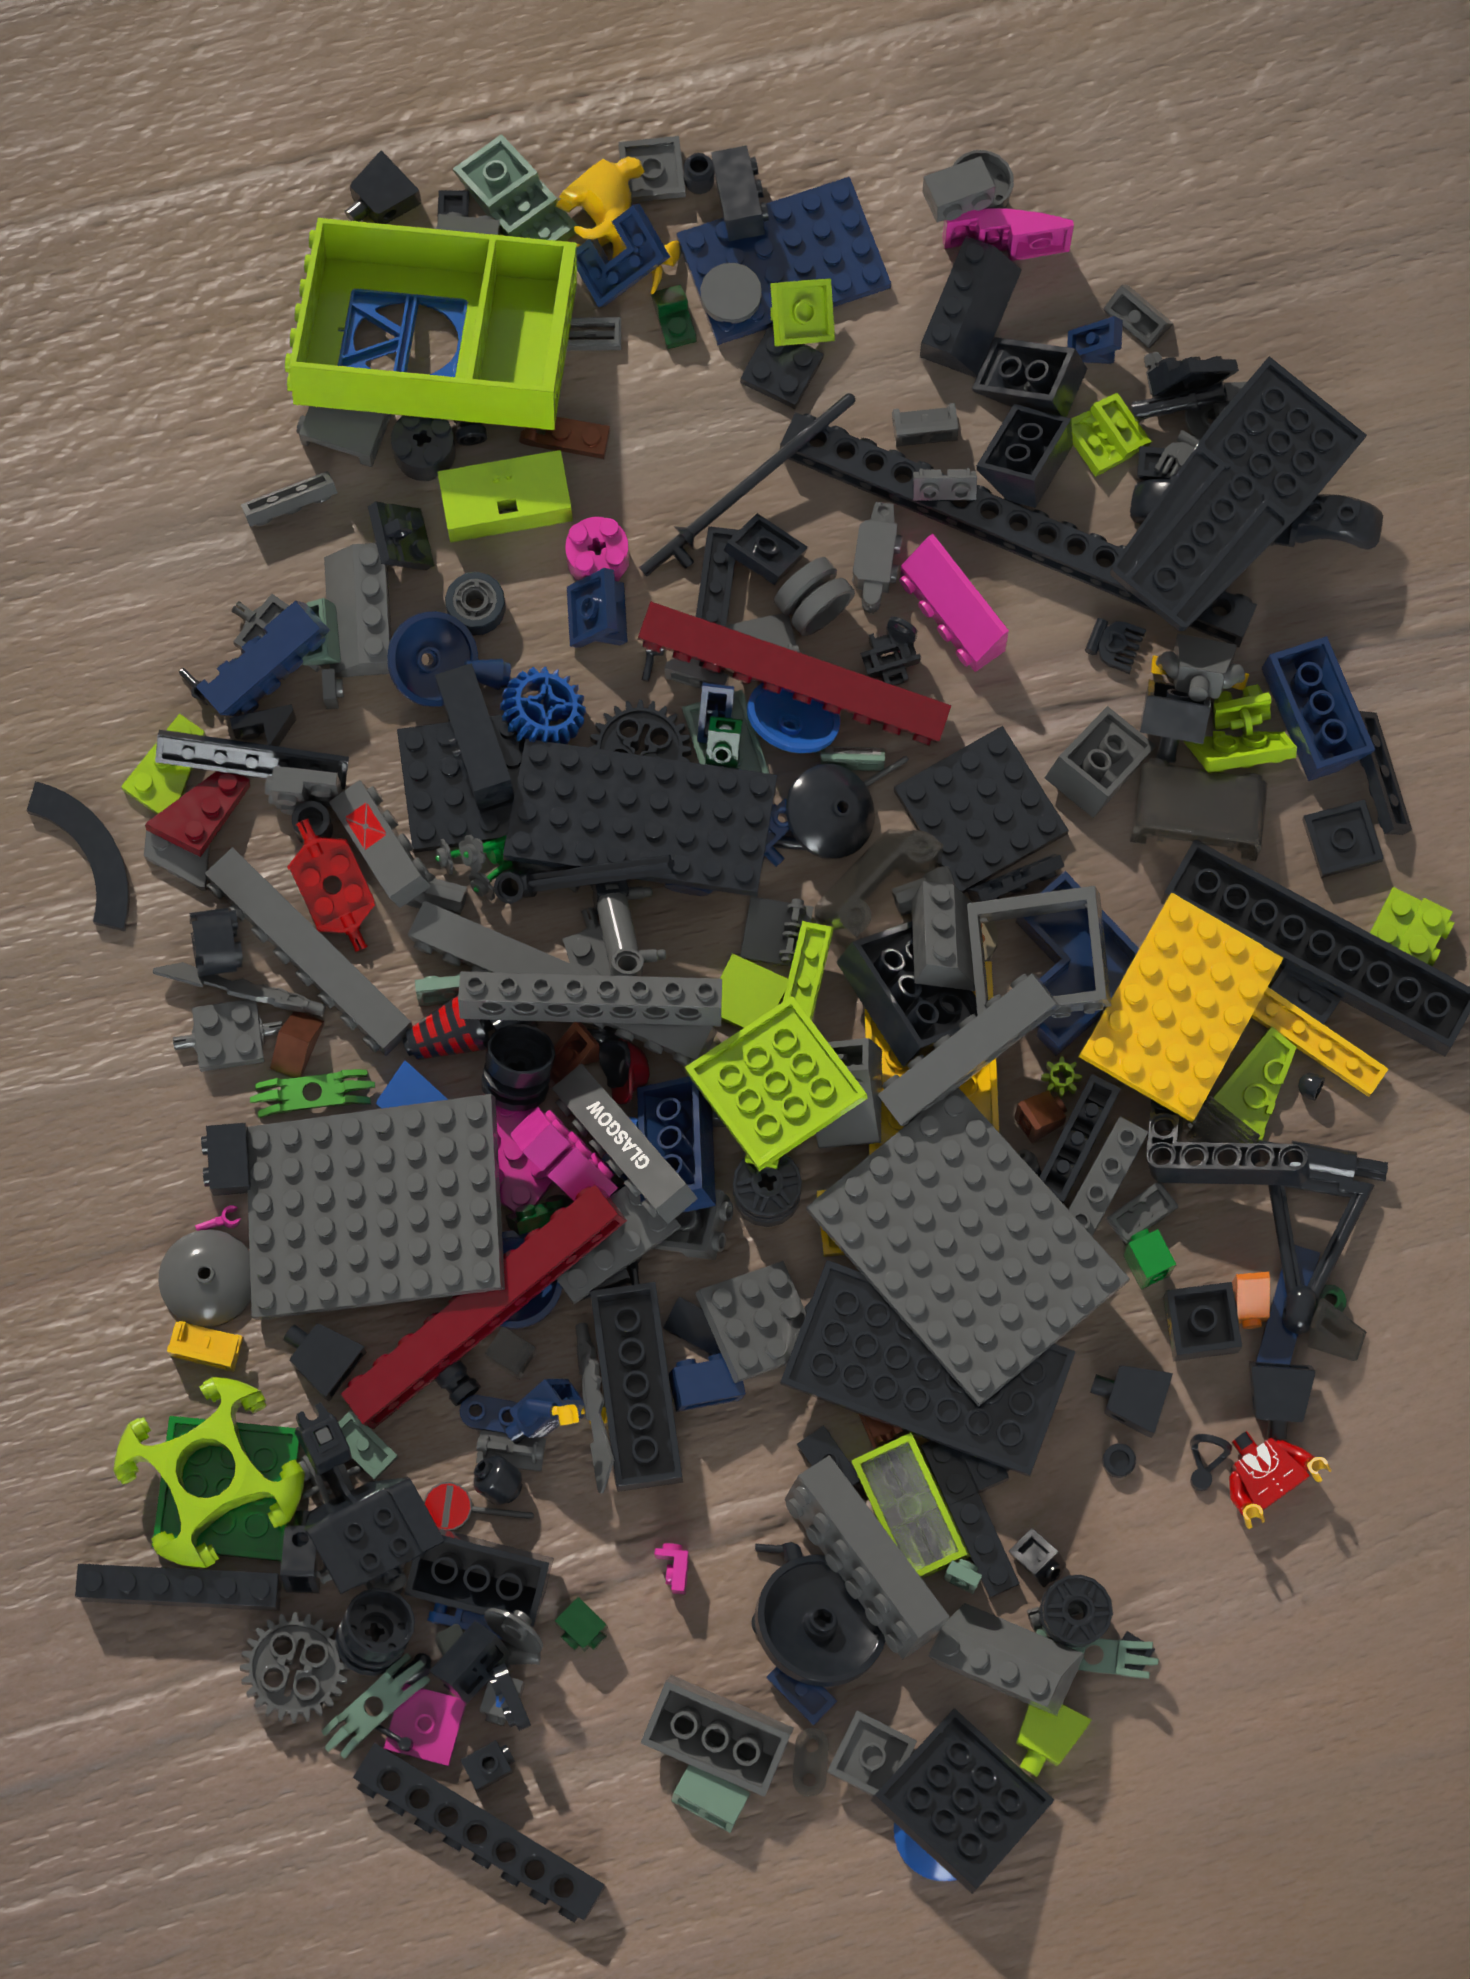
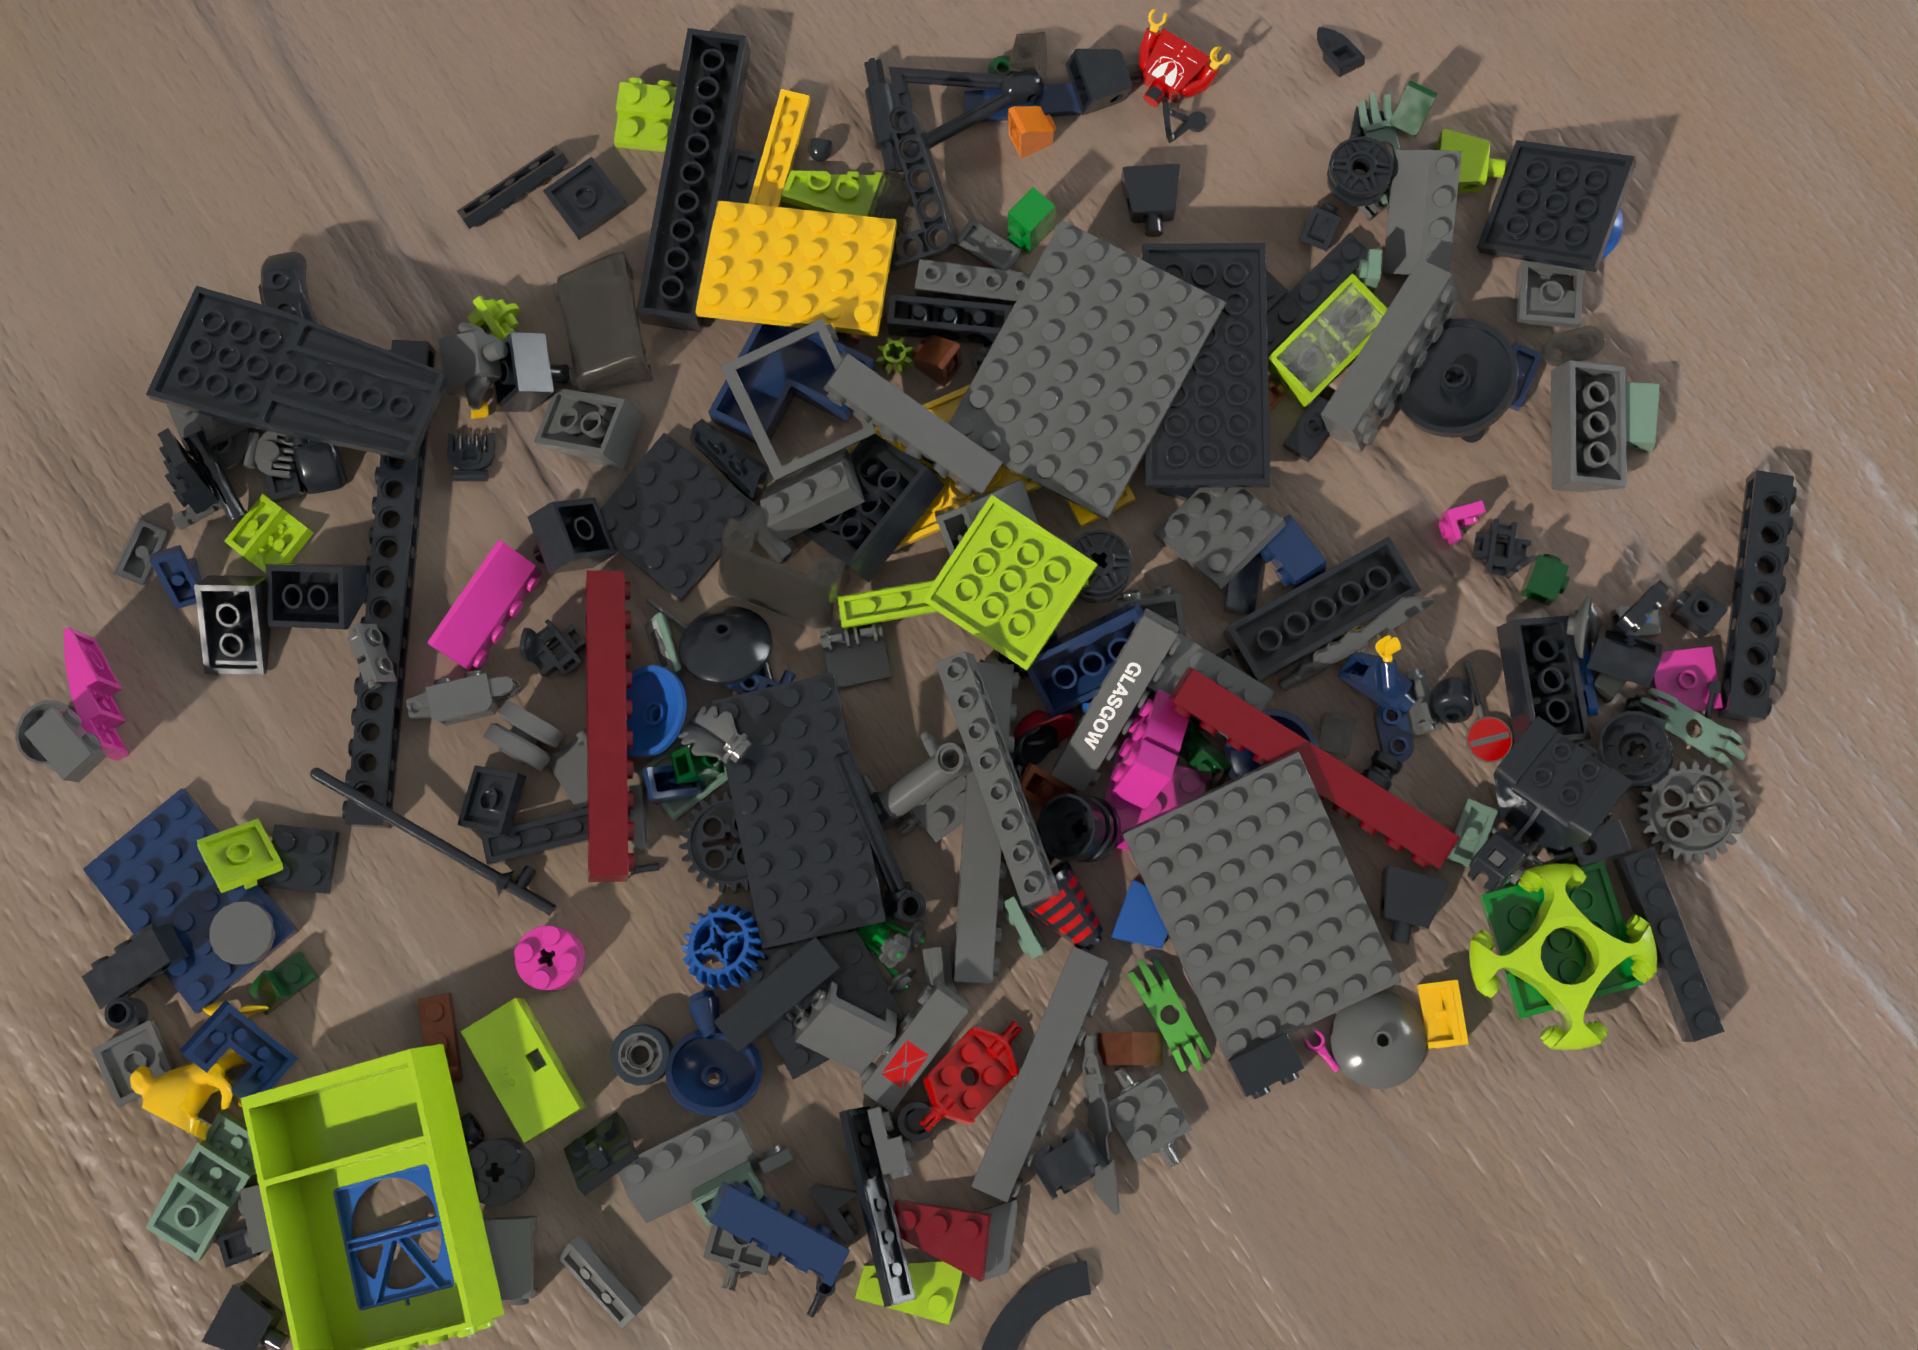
camera: 105 degrees left, 5 degrees up
(417, 781) = (844, 1030): none -> dark grey panel
(591, 345) = (336, 1044): dark grey tile -> none
(597, 610) = (608, 937): dark blue bracket -> none
(628, 1602) = (1494, 550): none -> black piece
(740, 761) = (714, 735): none -> dark grey plant
(749, 991) = (918, 650): lime tile -> none
(789, 1550) = (1401, 432): black hand -> none
(925, 426) = (315, 702): dark grey hinge -> none
(970, 308) = (182, 705): black slope -> none
(991, 703) = (571, 535): none -> black brick
(1119, 1460) = (1209, 192): black tile -> none
(1120, 1692) = (1413, 108): none -> dark green slope
(1202, 1321) = (1066, 160): black brick -> none
(1223, 1655) = (1339, 51): none -> black plate
(1229, 752) = (536, 307): lime wing -> none
(1317, 707) = (472, 256): dark blue slope -> none

